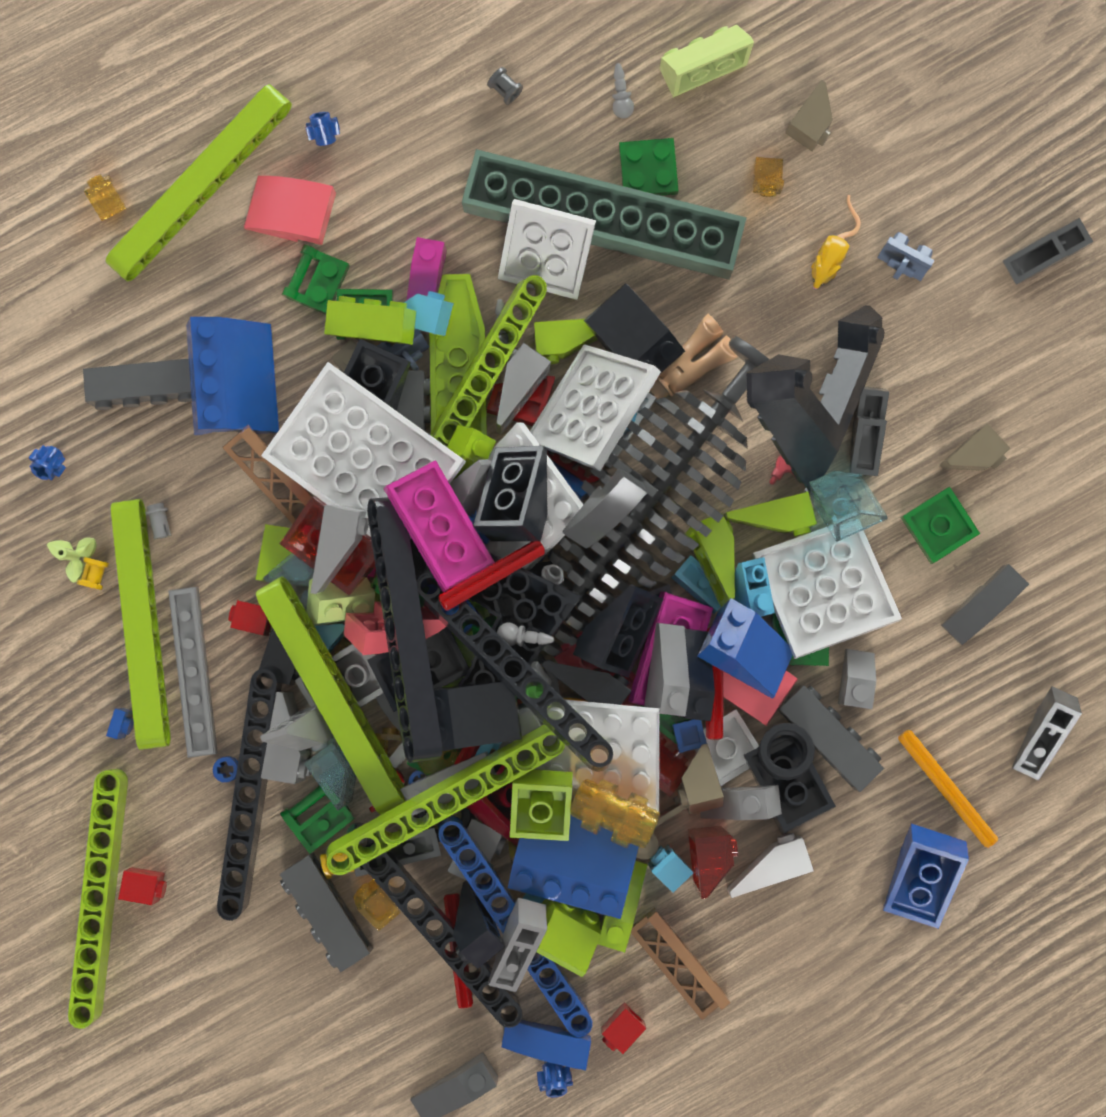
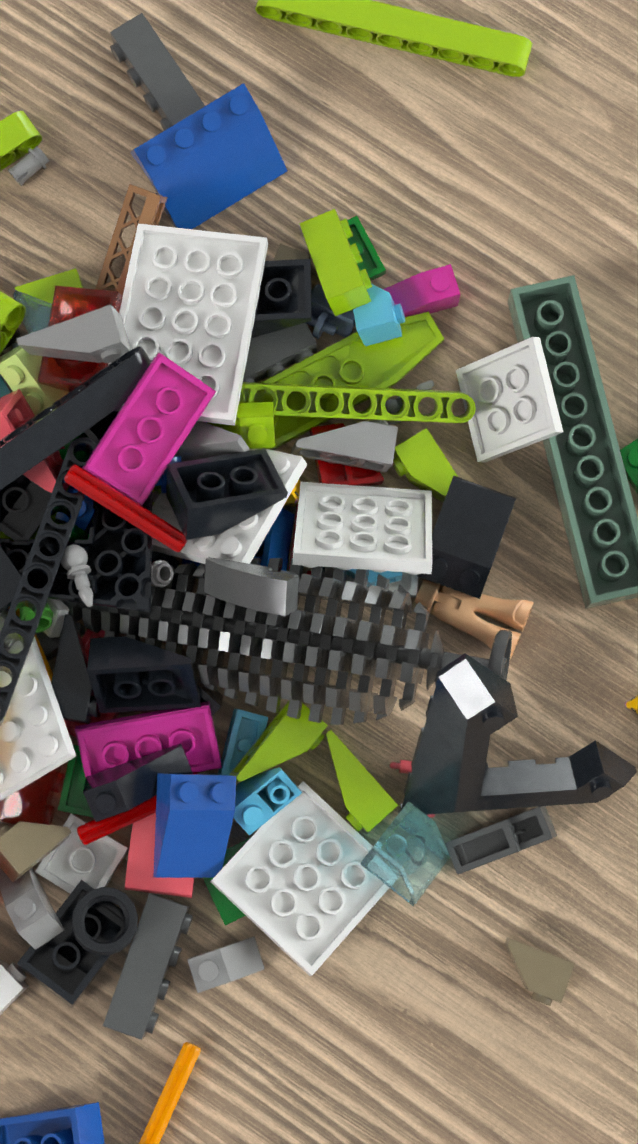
camera: 60 degrees right, 5 degrees down
(47, 462) = (31, 29): blue gear -> none
(290, 208) = (415, 129): coral slope -> none
(322, 128) = (514, 116): blue gear -> none
(324, 283) = (362, 201): green plate -> none
(668, 672) = (125, 750): light grey slope -> none
(689, 735) = (72, 810): blue plate -> none
(940, 525) = (439, 970): green plate -> none
(985, 604) = (377, 1063): dark grey slope -> none

